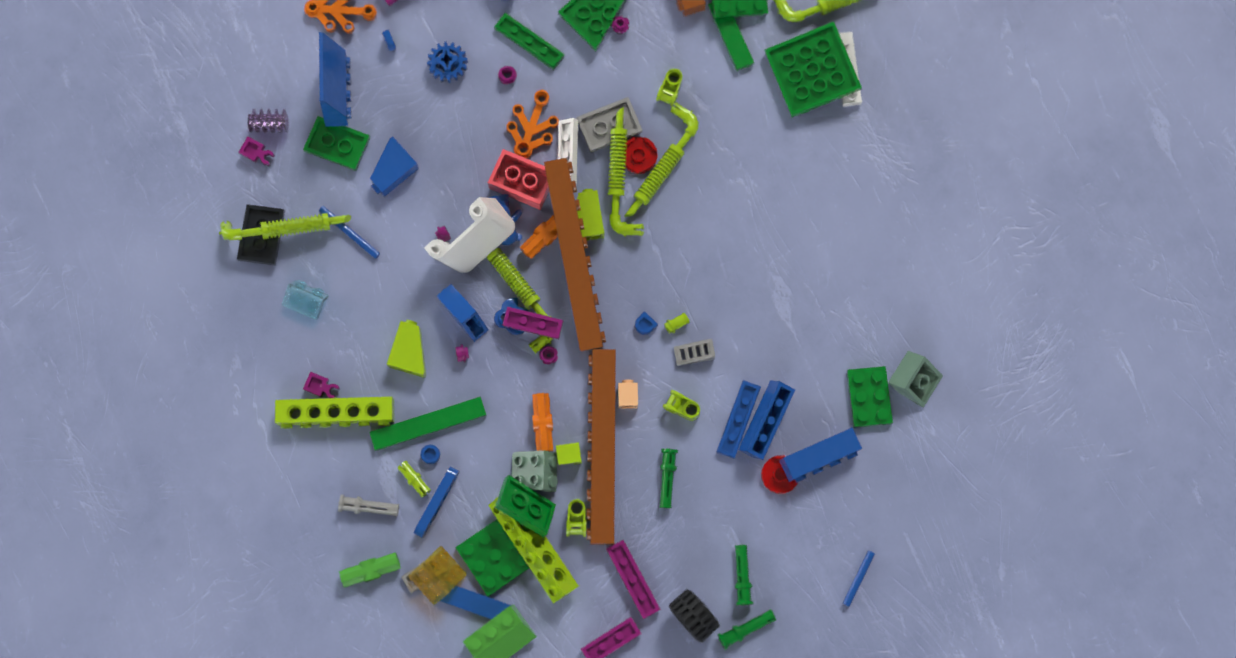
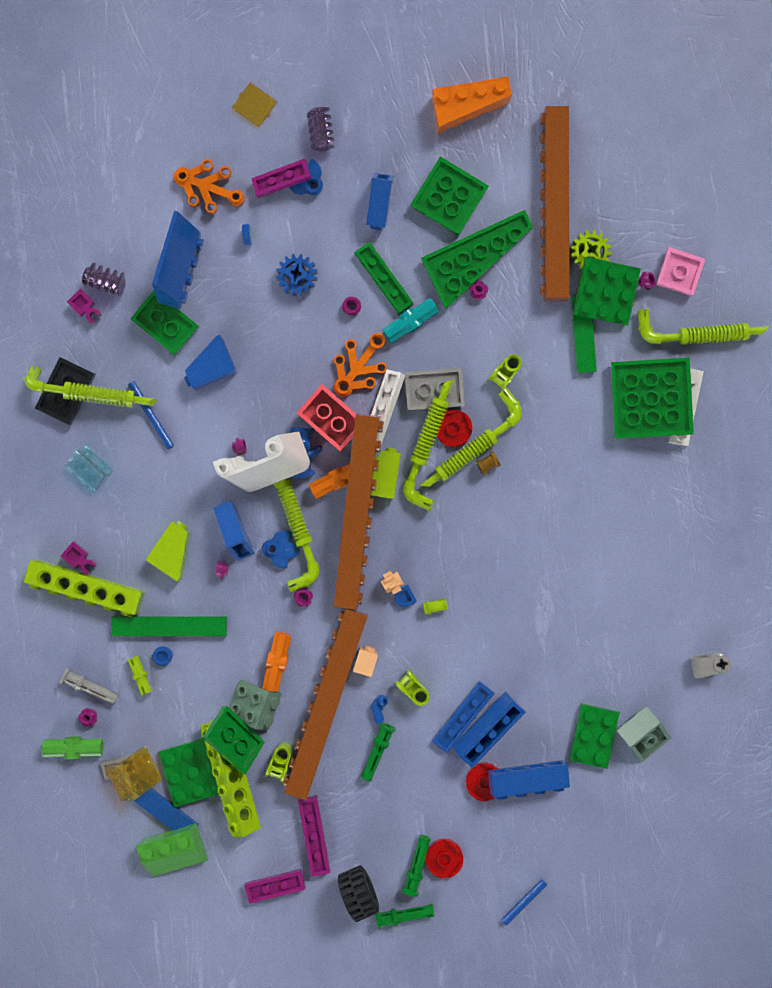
camera: 20 degrees right, 10 degrees up
(375, 531) = (92, 717): none -> magenta plate
(436, 502) = (153, 704): blue beam -> none
(533, 323) = (296, 565): magenta plate -> none
(566, 70) = (410, 320): none -> teal piece
(568, 454) = (291, 700): lime panel -> none
(628, 312) = (392, 582): none -> light nougat gear
(654, 434) = (377, 707): none -> blue arm
(682, 175) = (488, 463): none -> pearl gold bush
(711, 354) = (459, 637): light grey slope -> none
(766, 561) = (444, 858): none -> red tile
(951, 295) = (706, 665): none -> light grey piece

